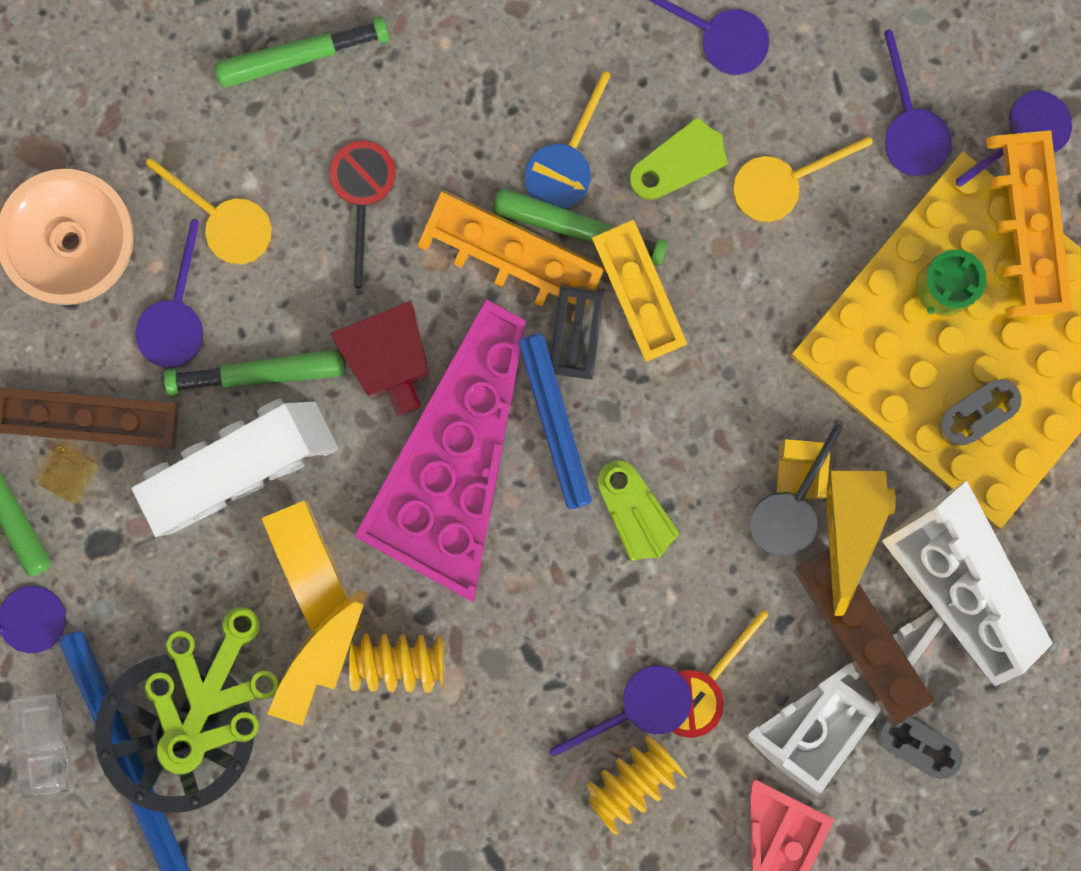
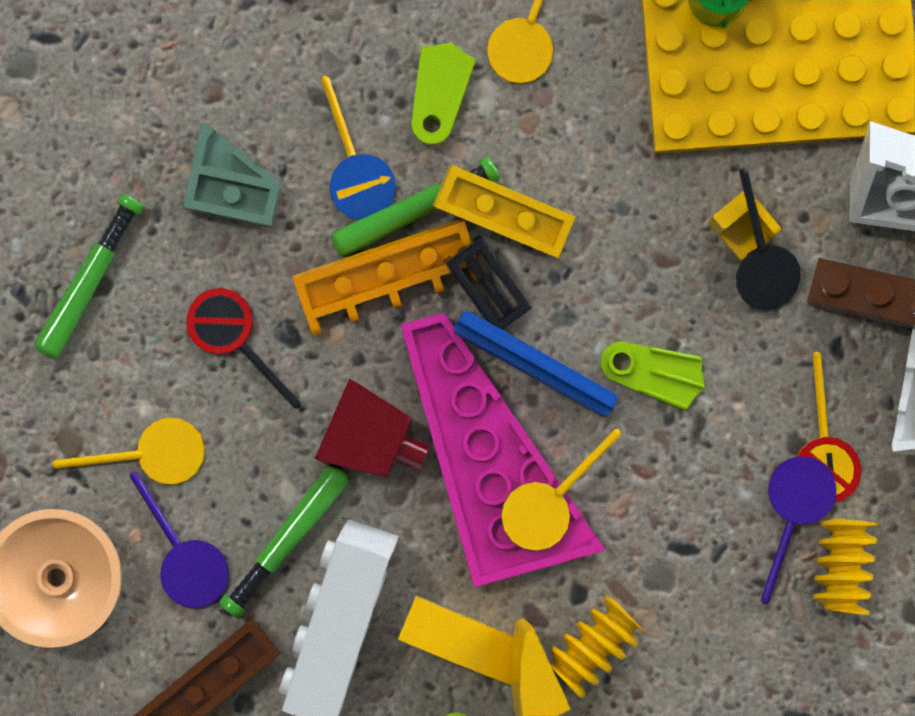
camera: 45 degrees left, 0 degrees up
(450, 528) = (537, 514): none -> yellow piece
(465, 81) = (229, 183): none -> sand green wing
(855, 519) = (816, 223): yellow slope -> none
(985, 421) = (839, 67): dark grey beam -> none

